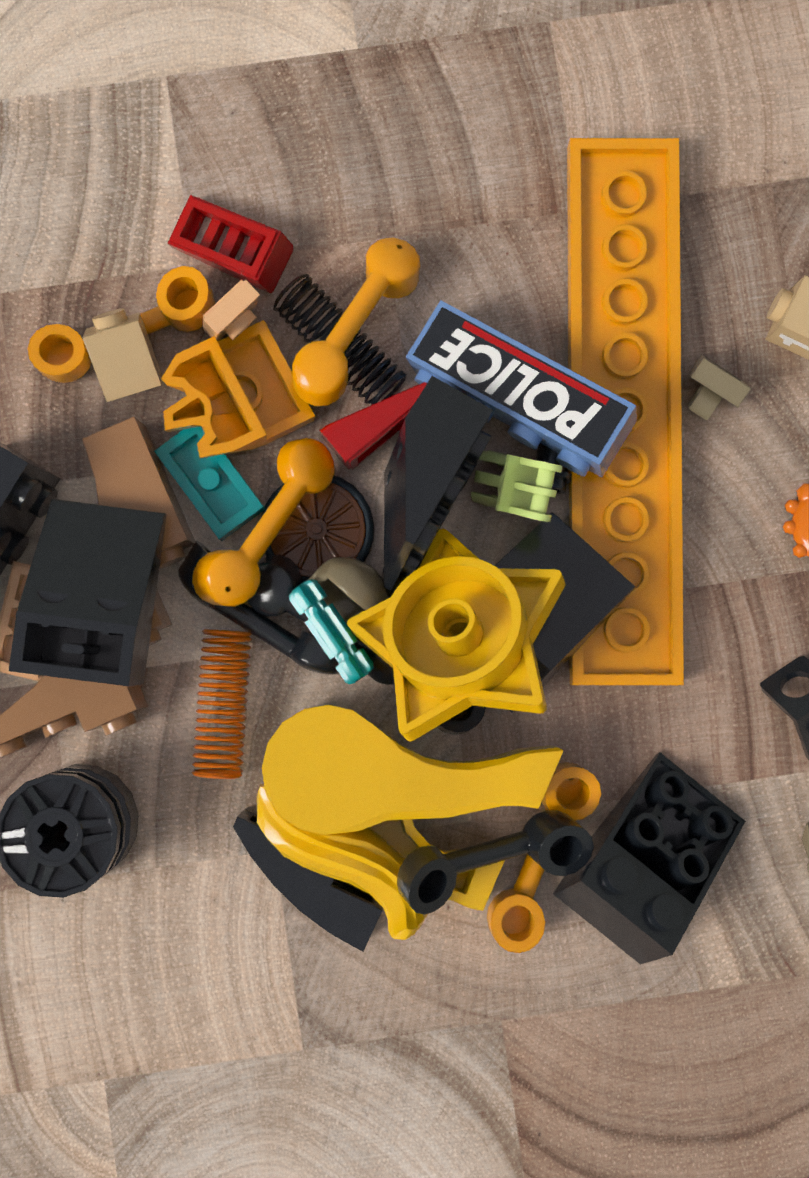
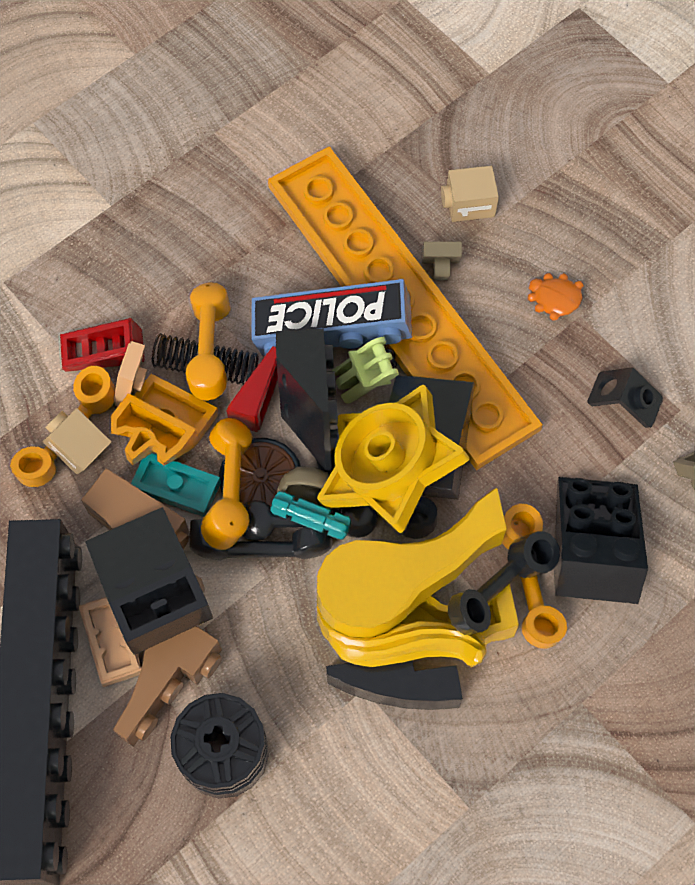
camera: 30 degrees left, 20 degrees down
(233, 636) = (303, 647): orange piece -> none

